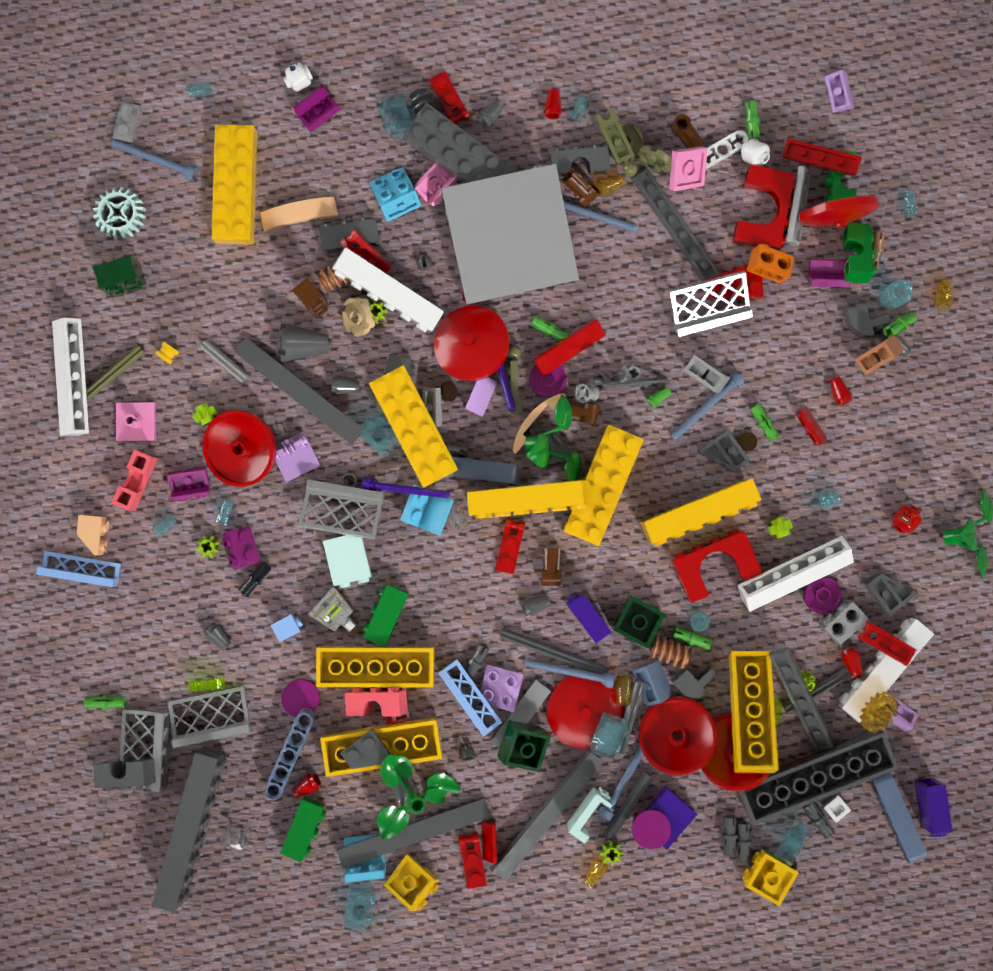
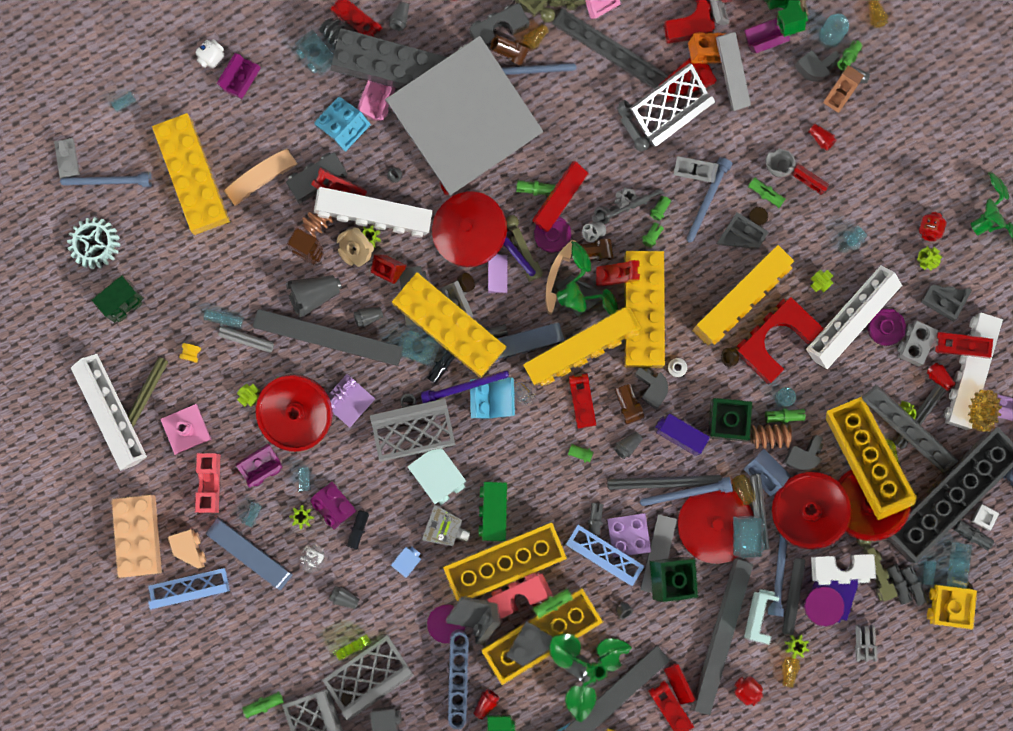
camera: 25 degrees left, 5 degrees down
(51, 502) = (136, 536): none -> light nougat brick
(146, 561) = (248, 554): none -> sand blue beam
(203, 588) = (313, 558): none -> clear head
(210, 333) = (223, 318): none -> clear light blue pin
(333, 704) = (476, 614): none -> dark grey bracket
(380, 348) = (387, 268): none -> red slope
(391, 462) = (440, 367): none -> black axle
(402, 723) = (553, 603): none -> bright green pin
(488, 594) = (581, 453): none -> bright green pin
(549, 874) = (748, 690): none -> red head
(584, 564) = (657, 387): none -> dark grey brick
(591, 442) = (617, 273): none -> red plate
(606, 556) = (671, 369): none -> white plate
(638, 420) = (650, 239): none -> bright green pin
(664, 562) = (730, 356): none -> dark brown tile
(666, 327) = (640, 143): none -> dark grey piece
(677, 877) = (867, 641): none -> light grey arm
(699, 809) = (861, 568): none -> white arch
(714, 835) = (885, 589): none -> olive plate
(762, 837) = (929, 573): none -> clear light blue pin
(782, 294) = (733, 71): none -> light grey tile
(795, 402) = (786, 160): none -> light grey hair
(890, 547) = (929, 258): none -> lime gear

